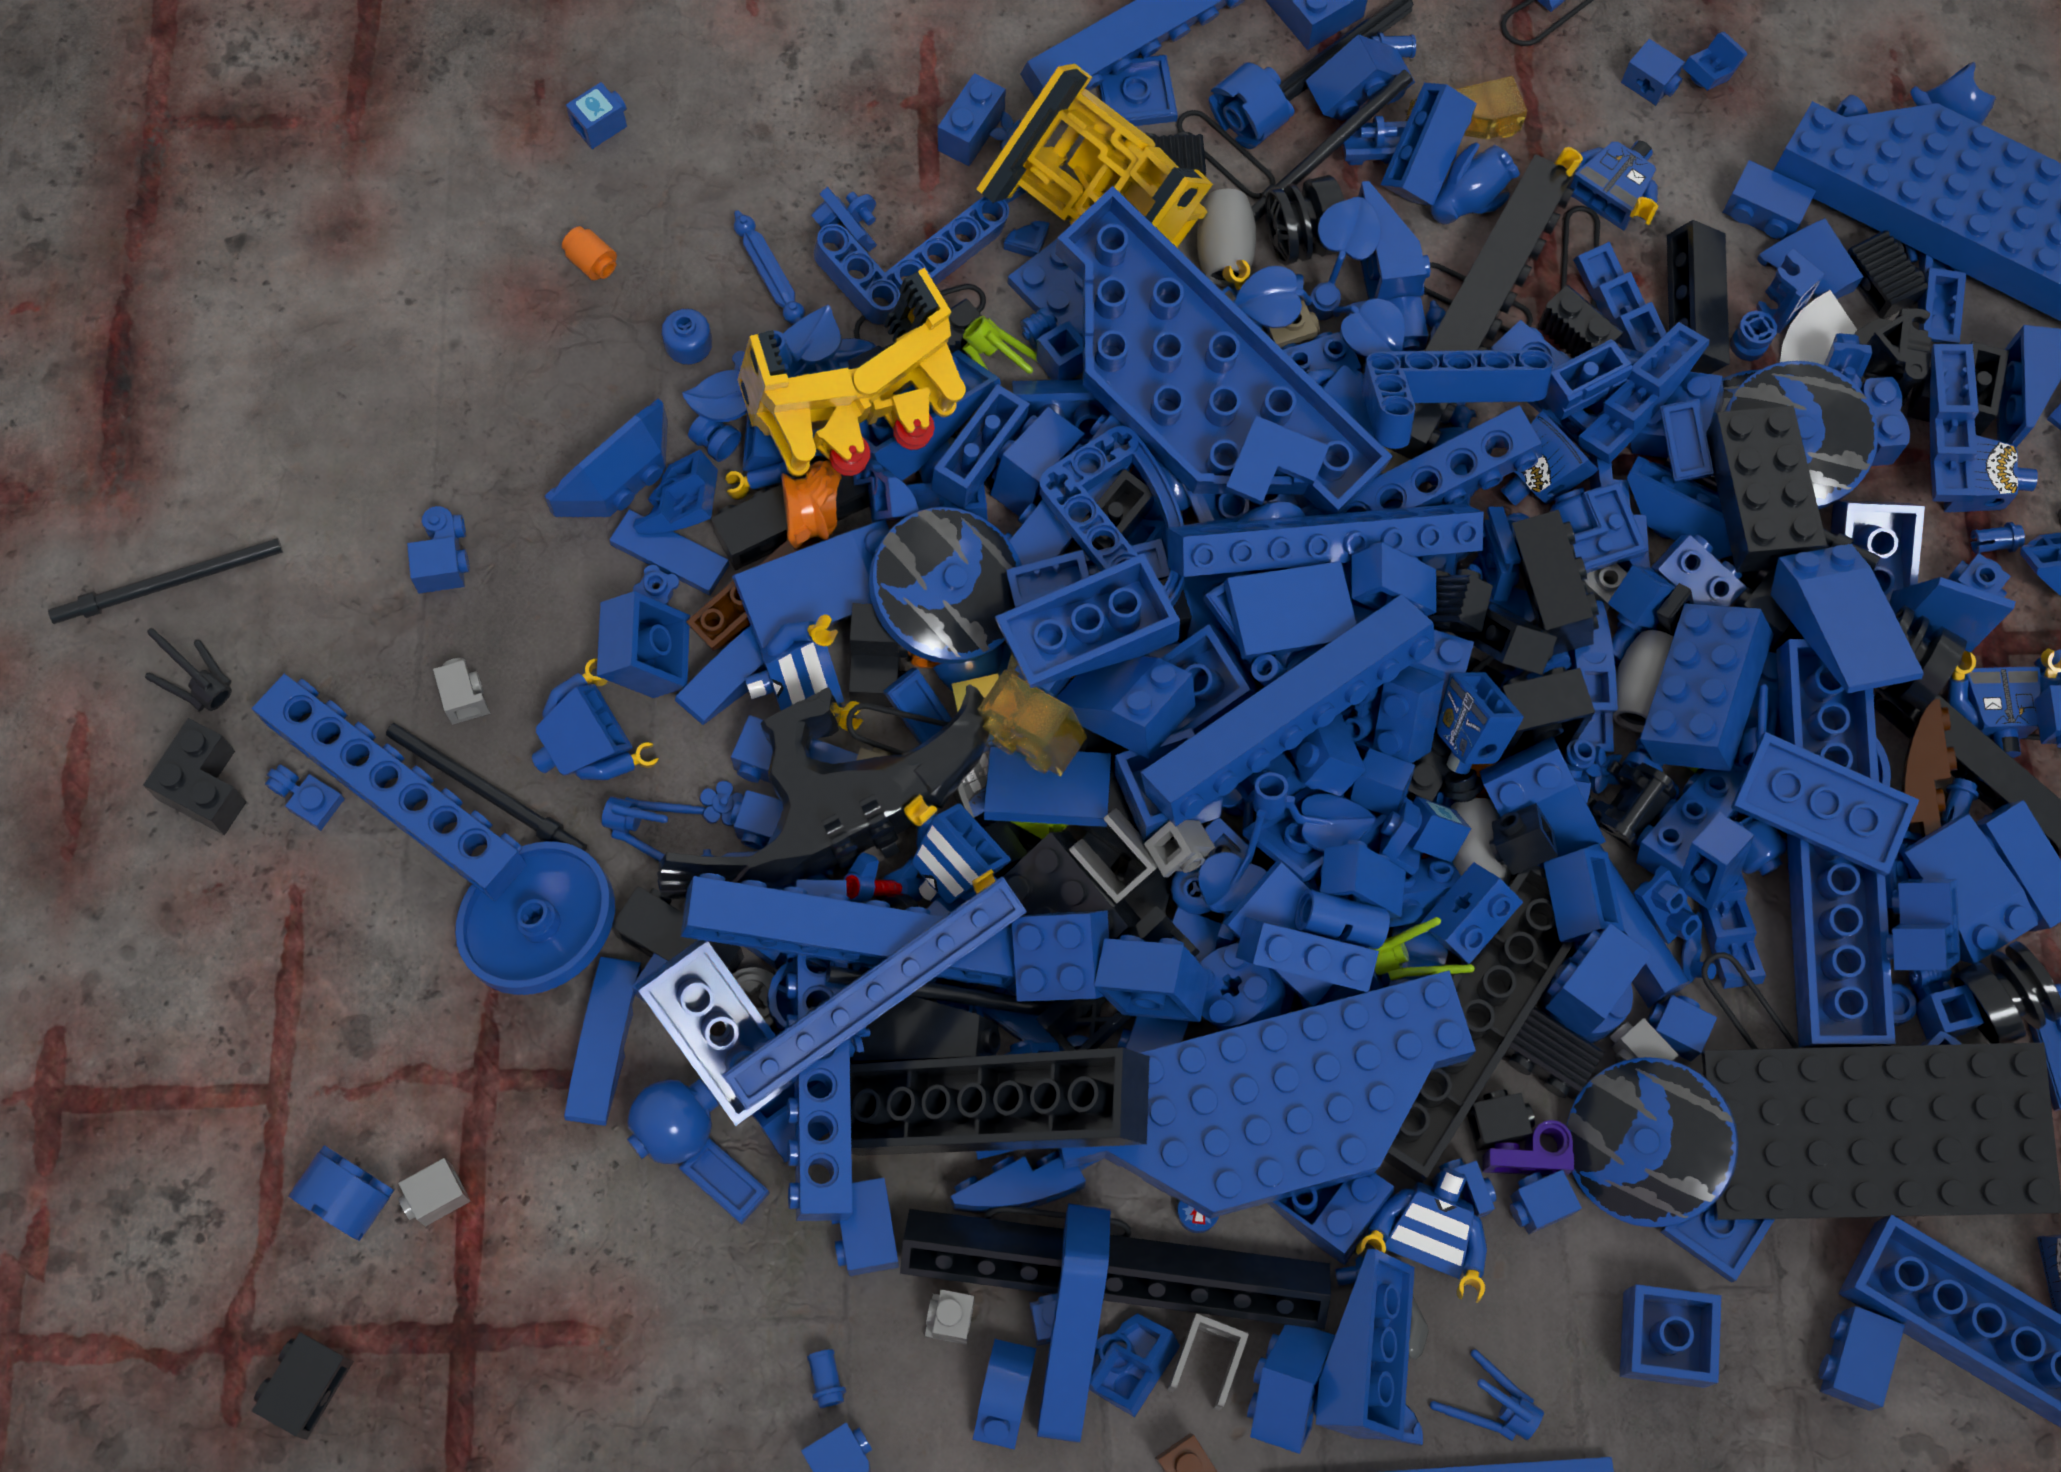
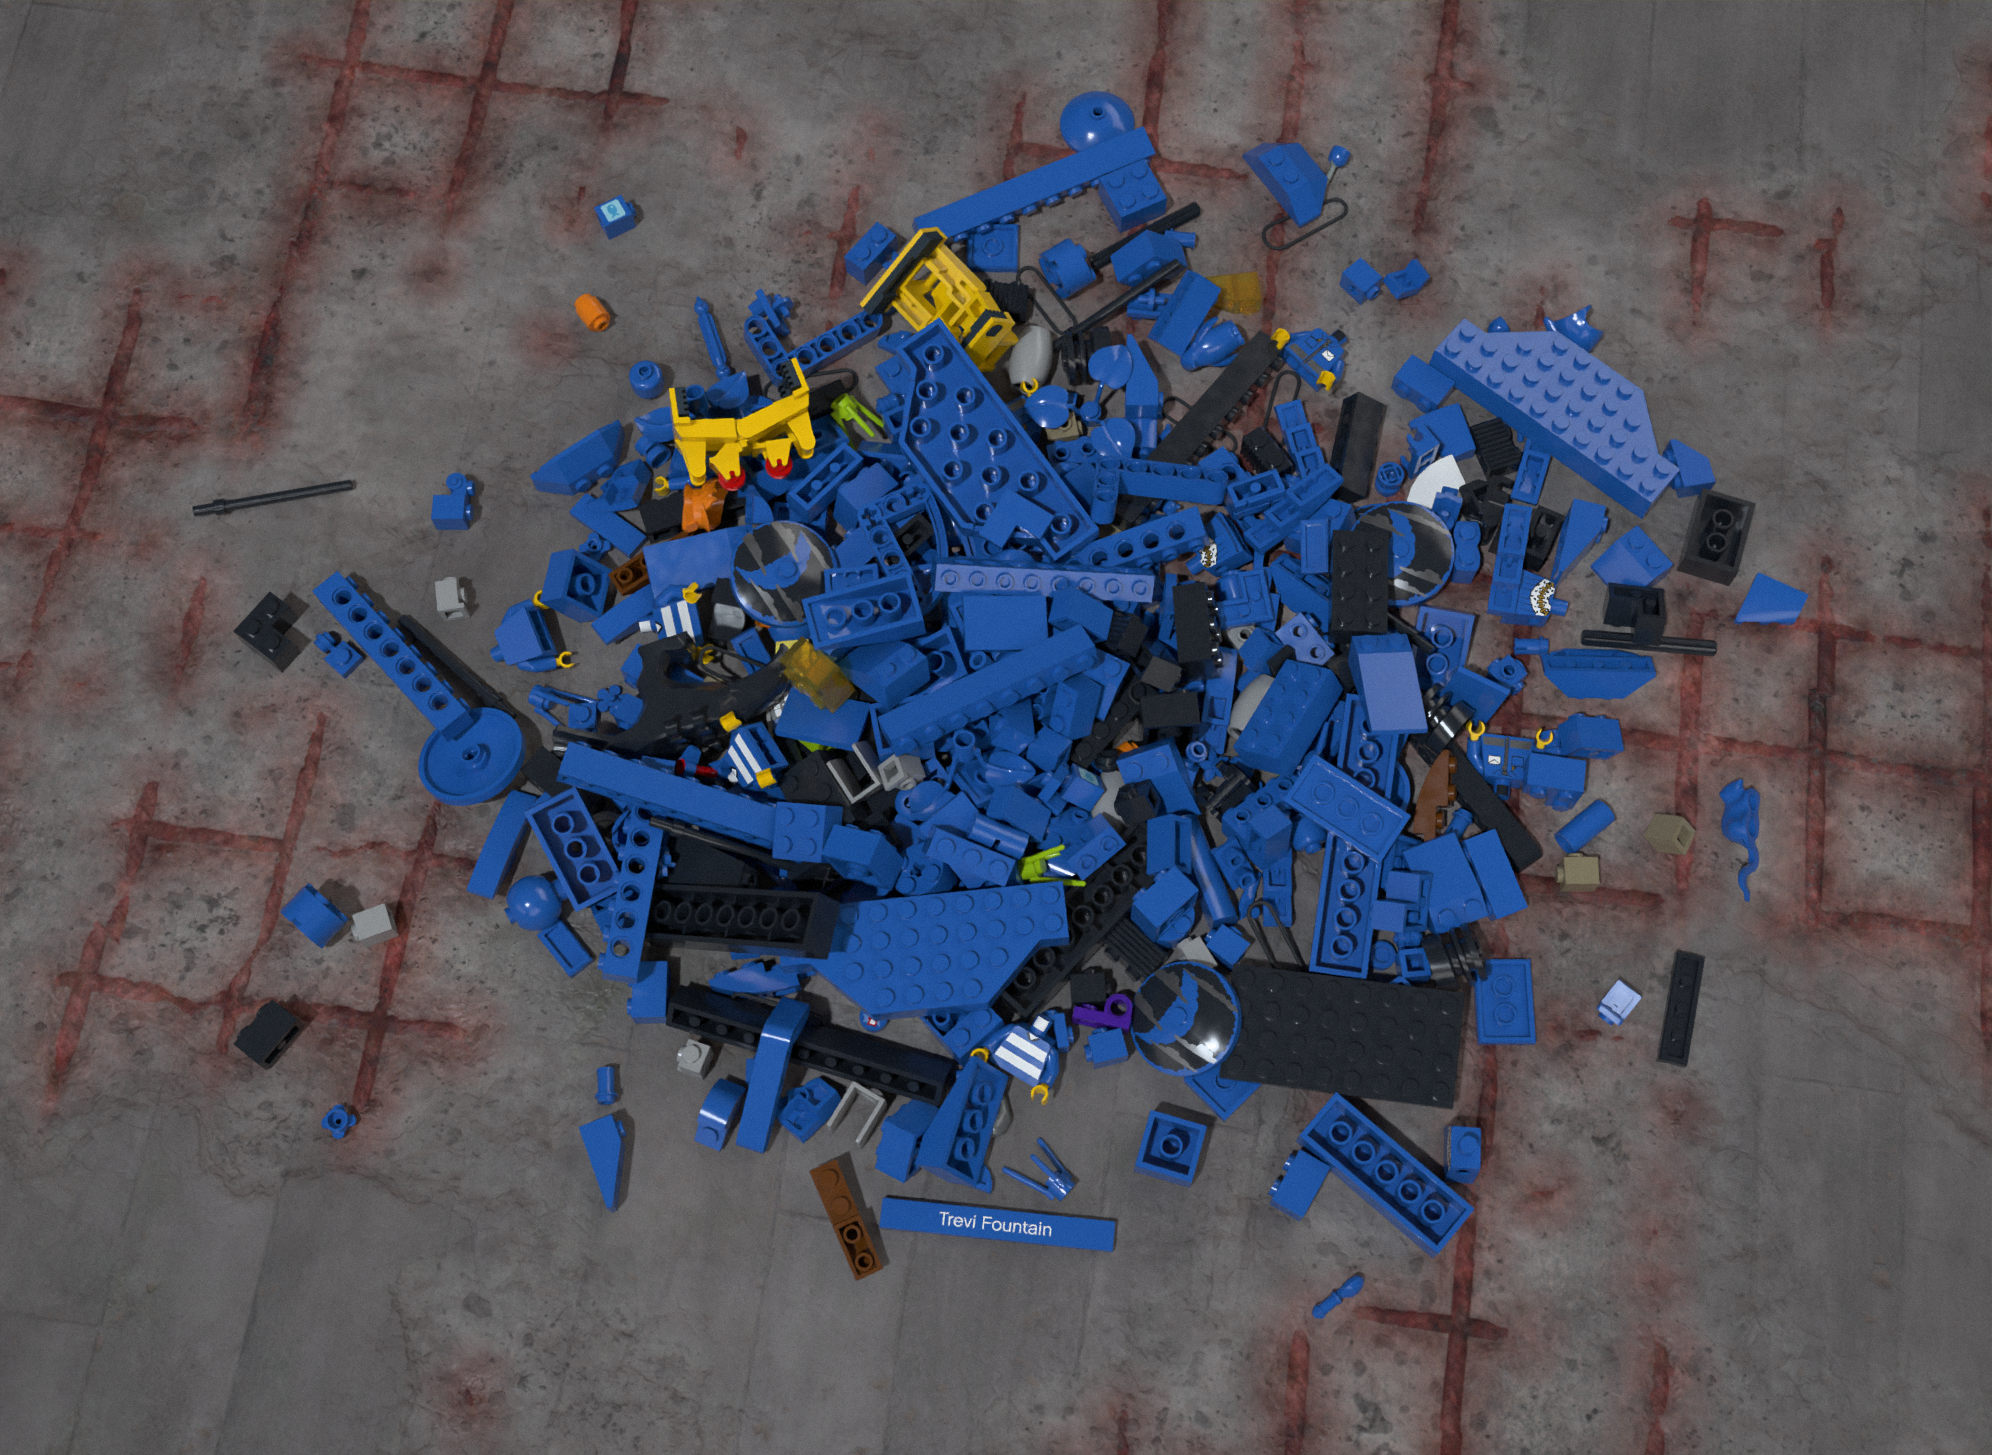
camera: 15 degrees right, 0 degrees up
(207, 689) = (287, 574): black plant -> none
(686, 833) = (583, 716): none -> blue plate
(873, 993) = (676, 836): blue tile -> none
(1476, 721) = (1120, 717): blue torso -> none

